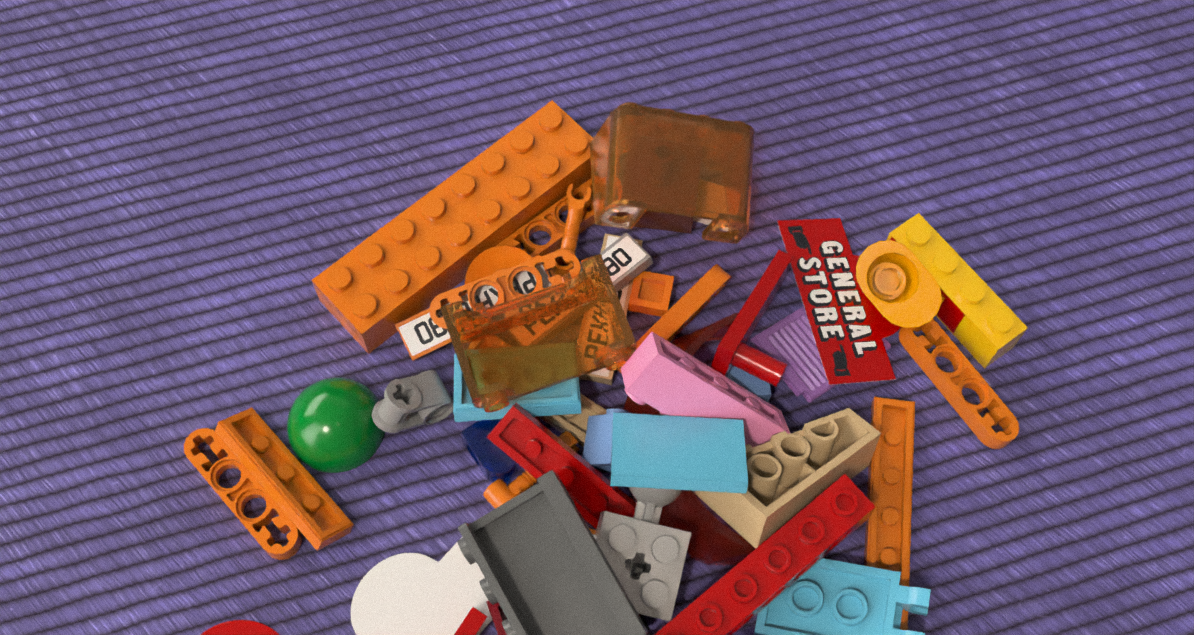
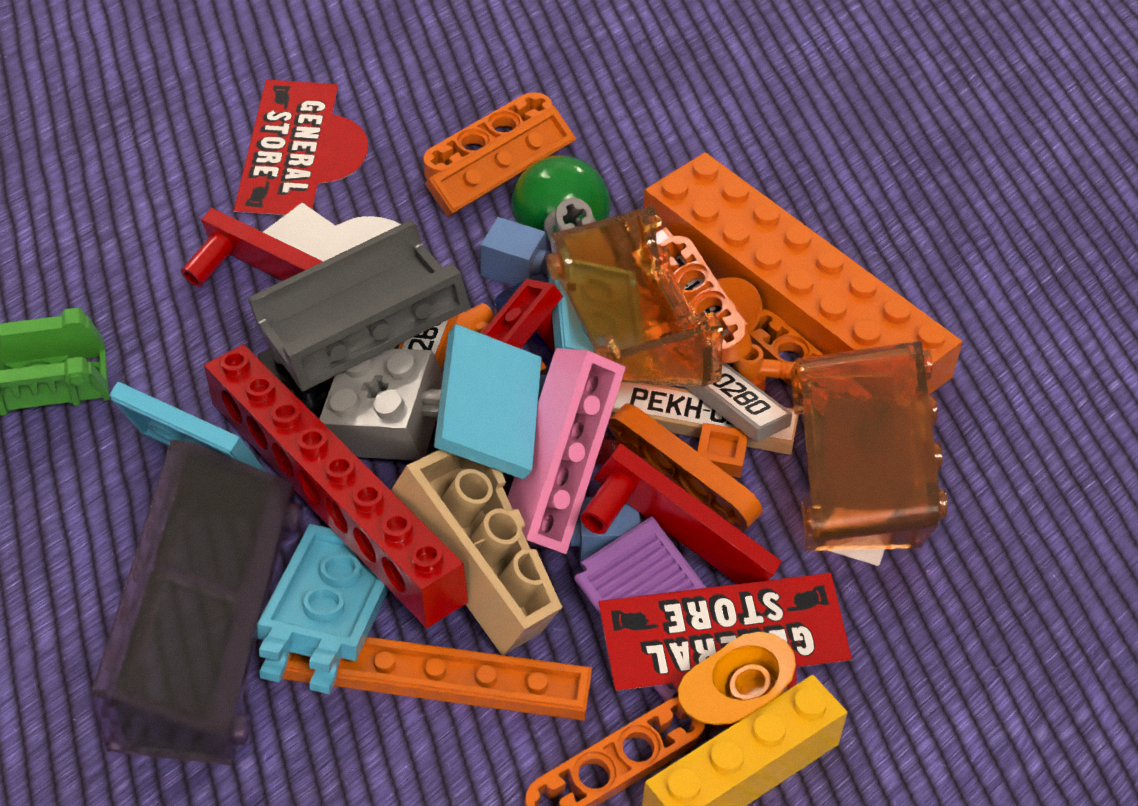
camera: 90 degrees right, 15 degrees down
(420, 461) = (512, 252): none -> medium blue brick

